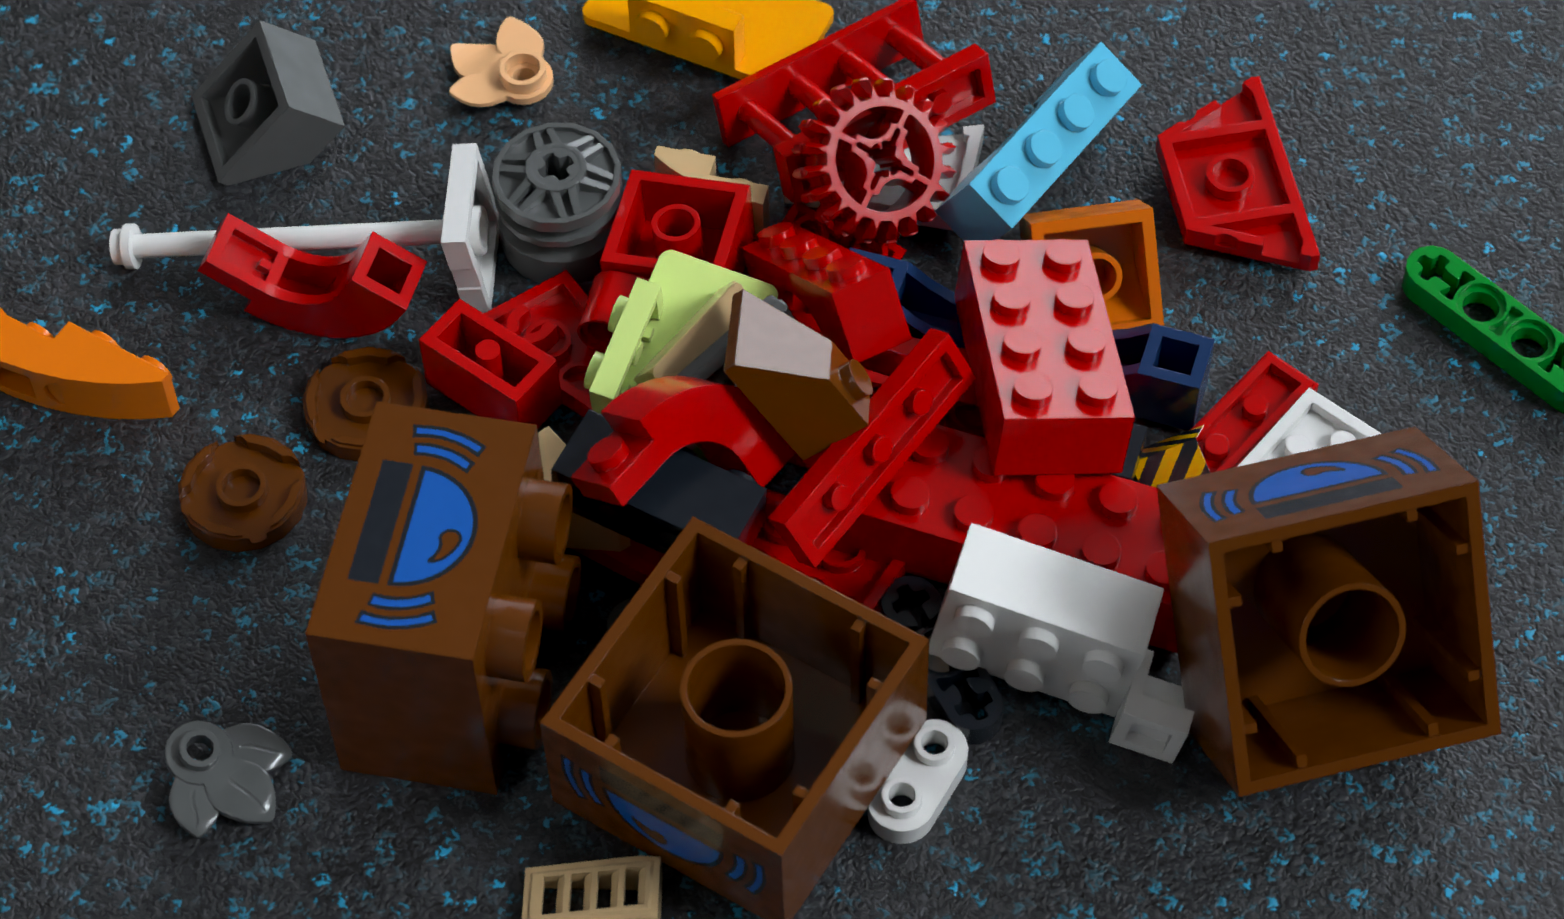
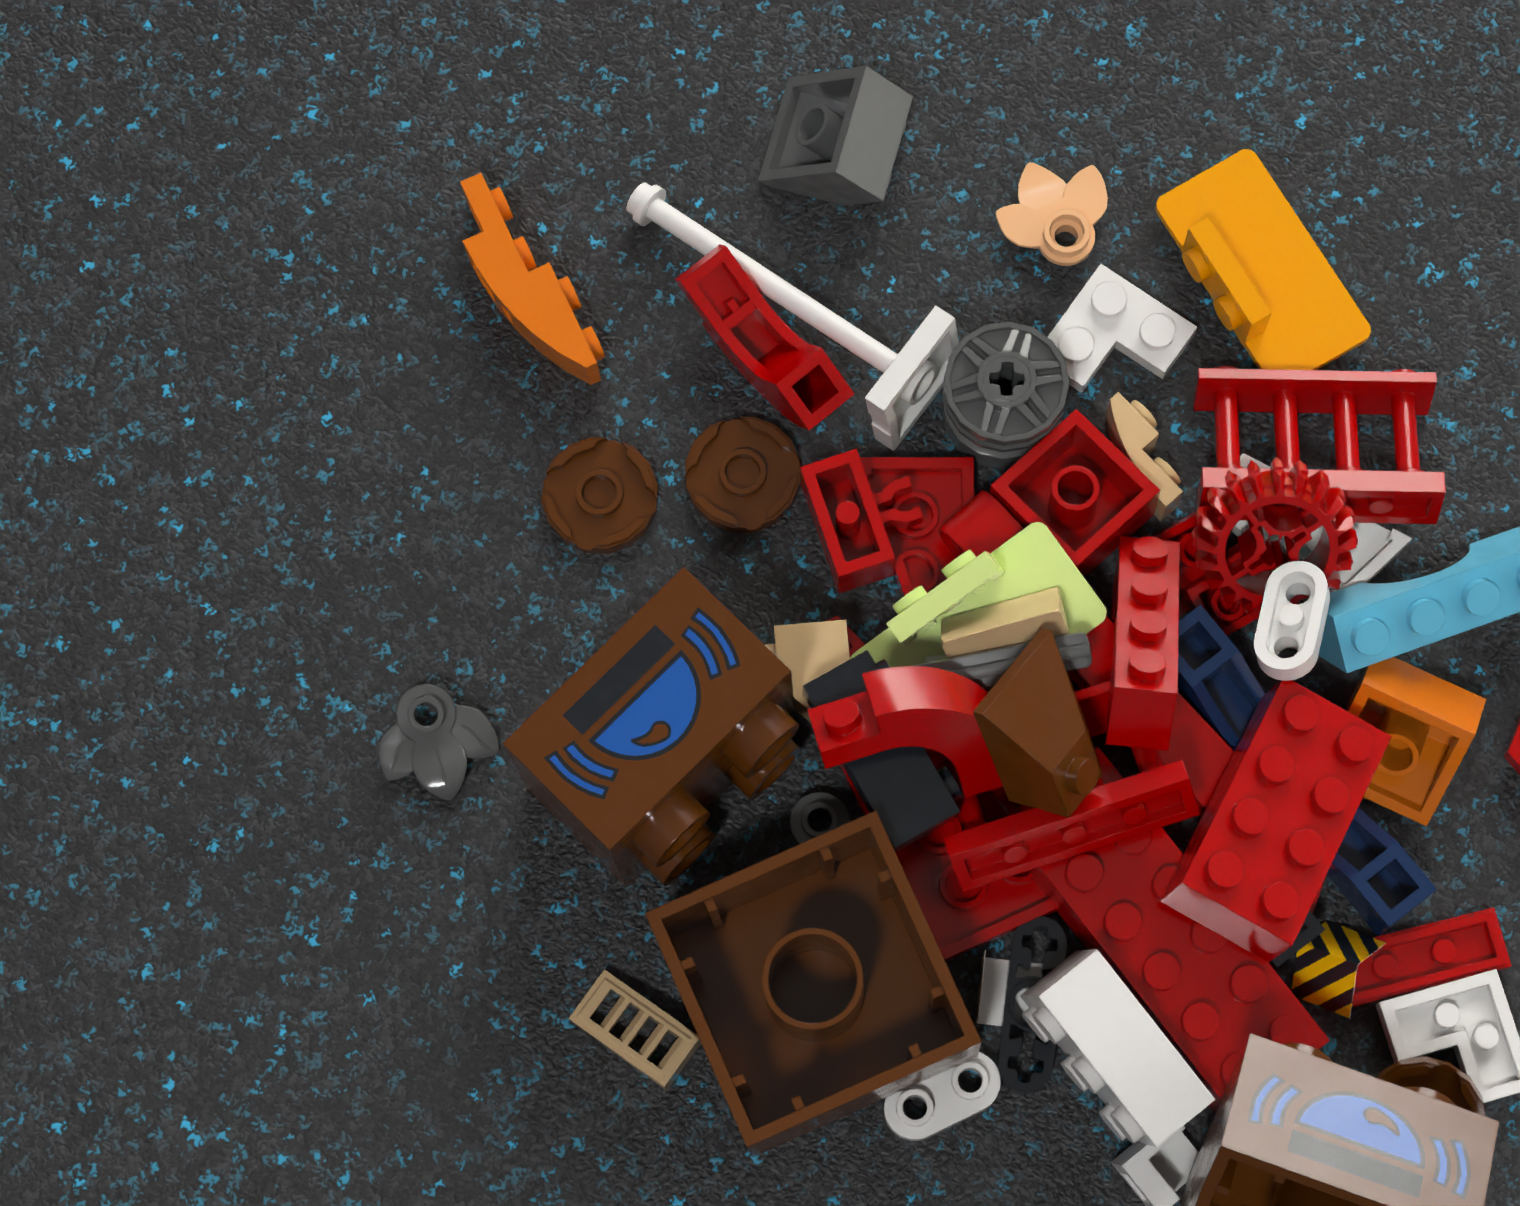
camera: 40 degrees right, 20 degrees up
(629, 110) = (1118, 316): none -> white plate
(938, 197) = (1289, 624): none -> white plate

